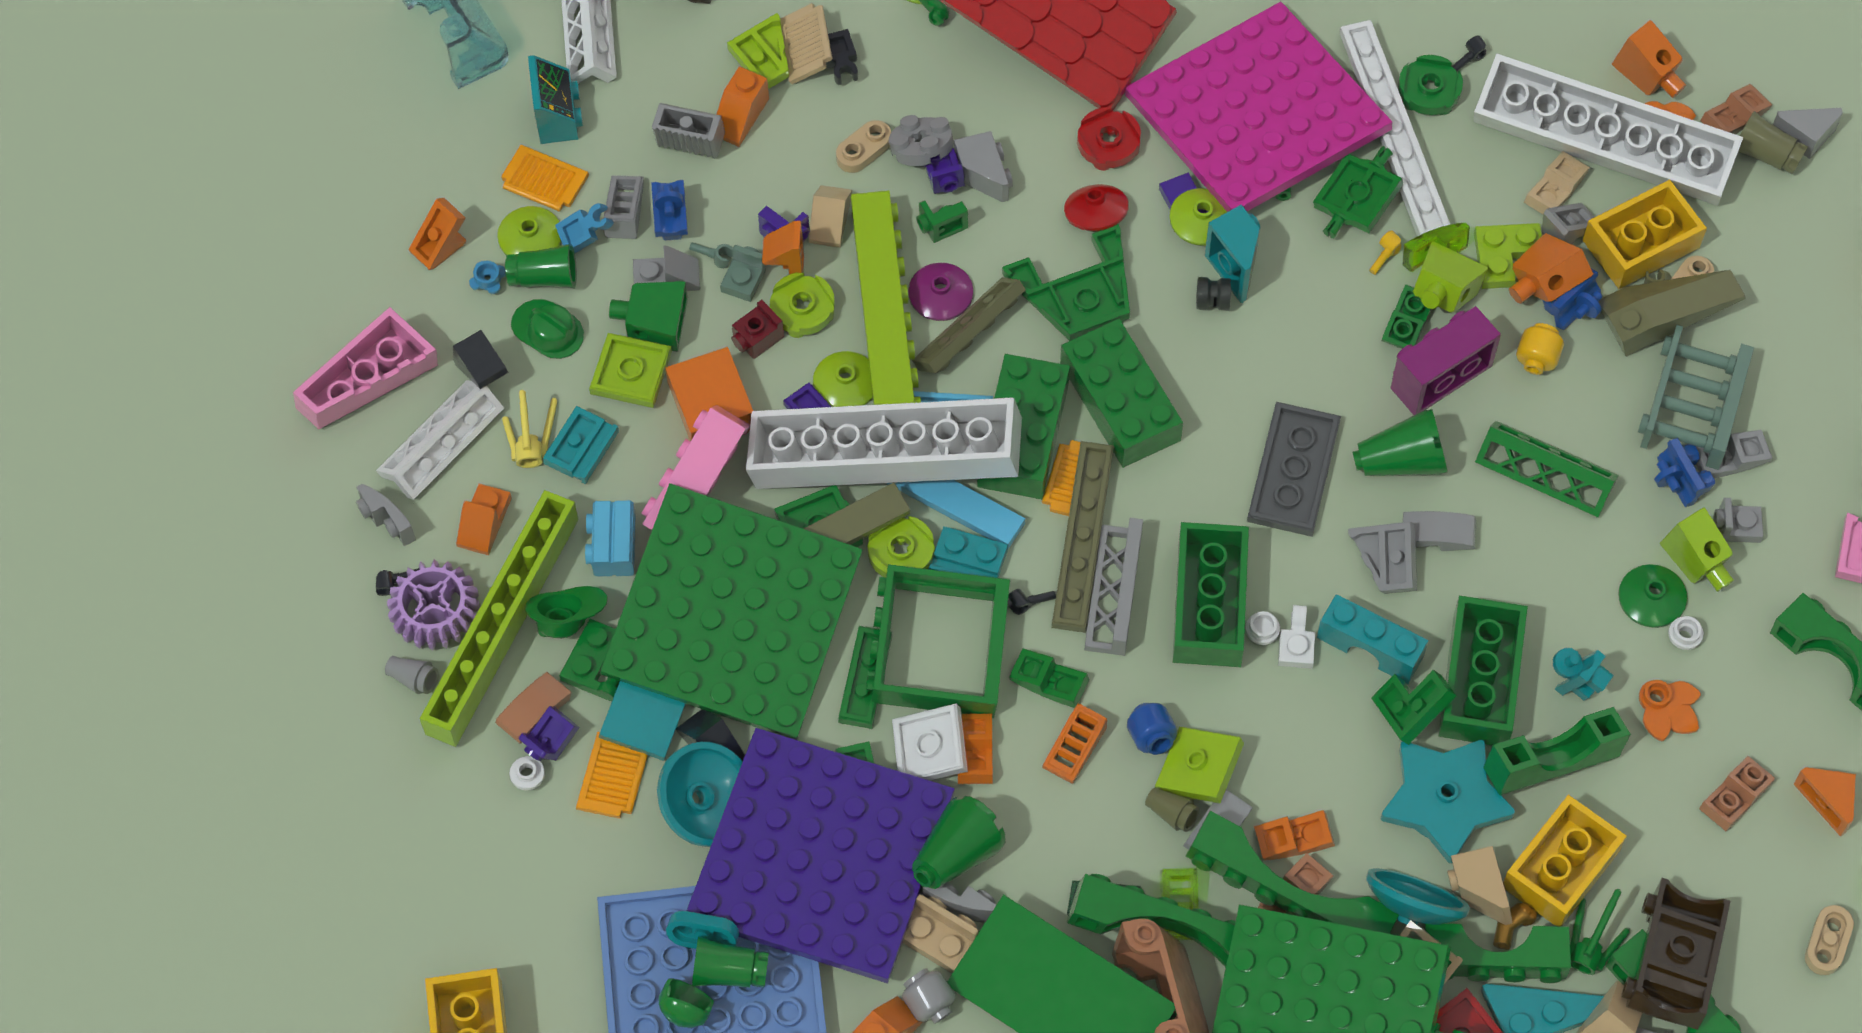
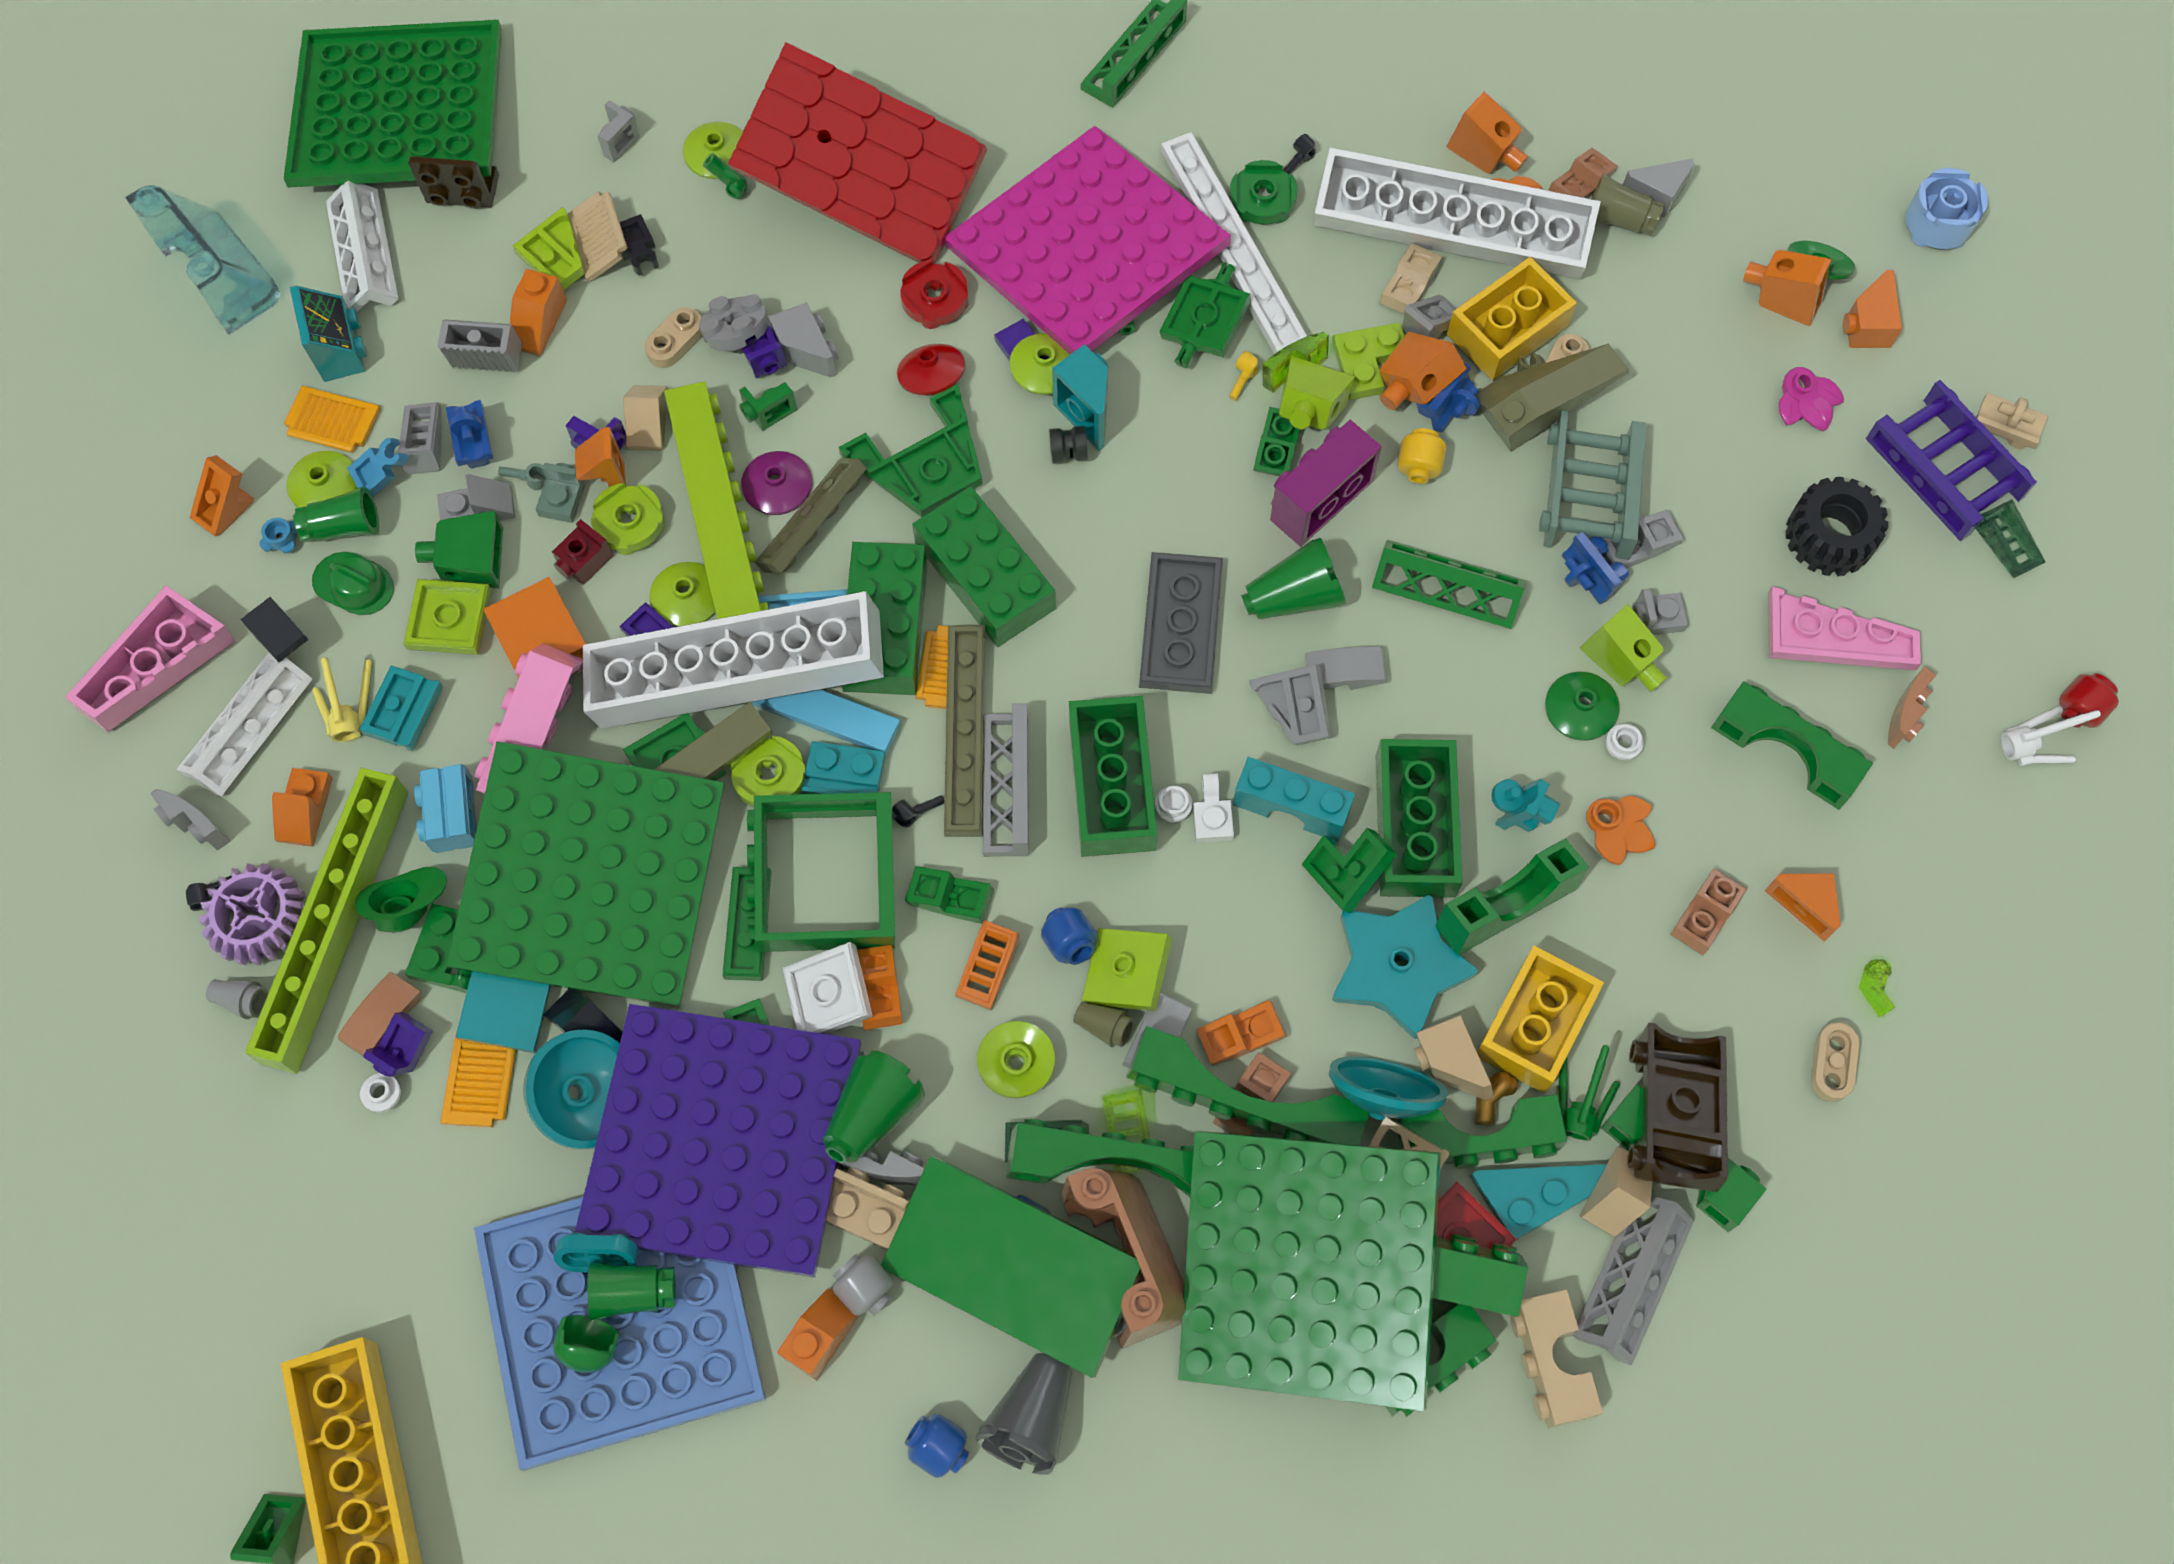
camera: 10 degrees left, 5 degrees up
(1089, 812) = (1011, 1041): none -> lime dish

